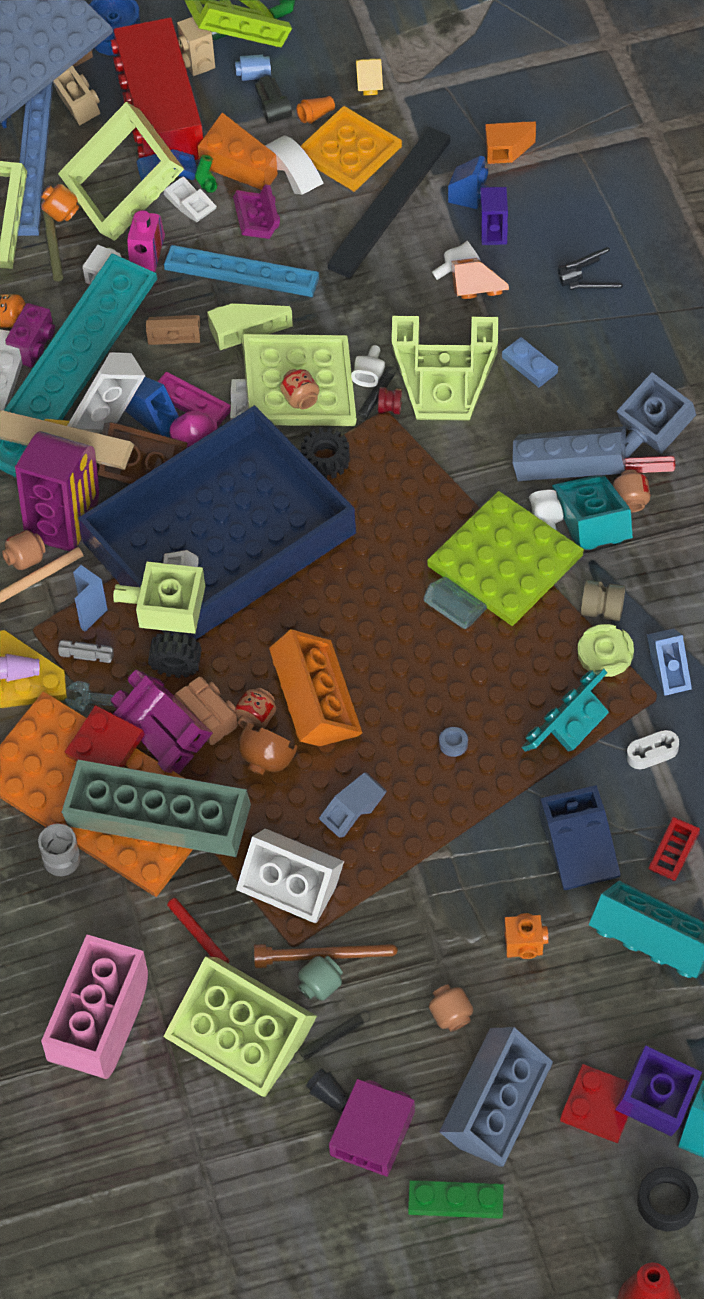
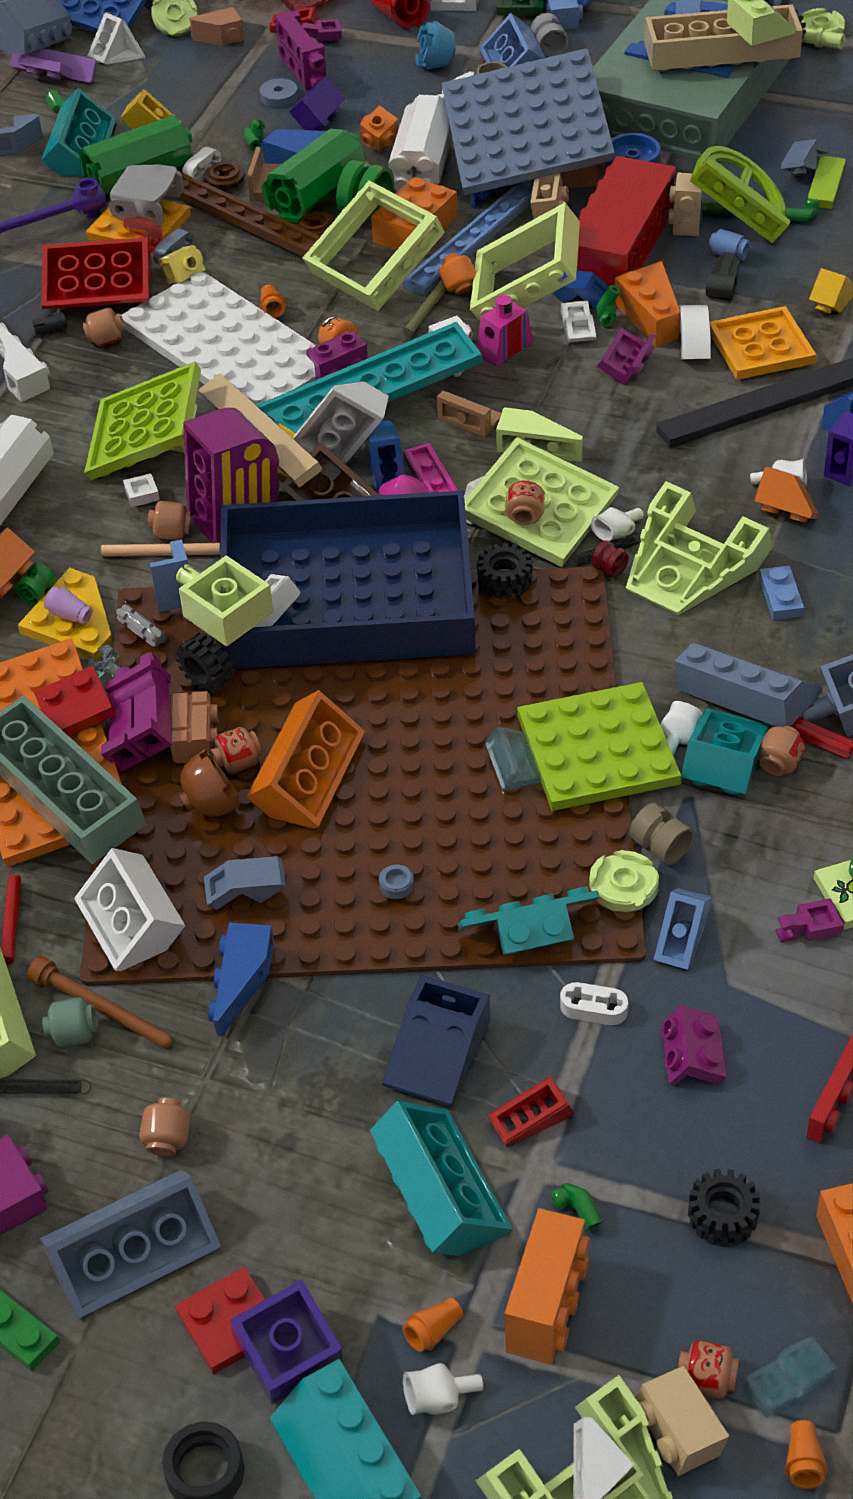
camera: 35 degrees right, 10 degrees down
(241, 271) = (575, 397): dark azure tile -> none
(313, 109) = (757, 299): orange cone -> none
(406, 864) = (245, 966): none -> blue slope
(525, 936) = (296, 1101): orange brick -> none

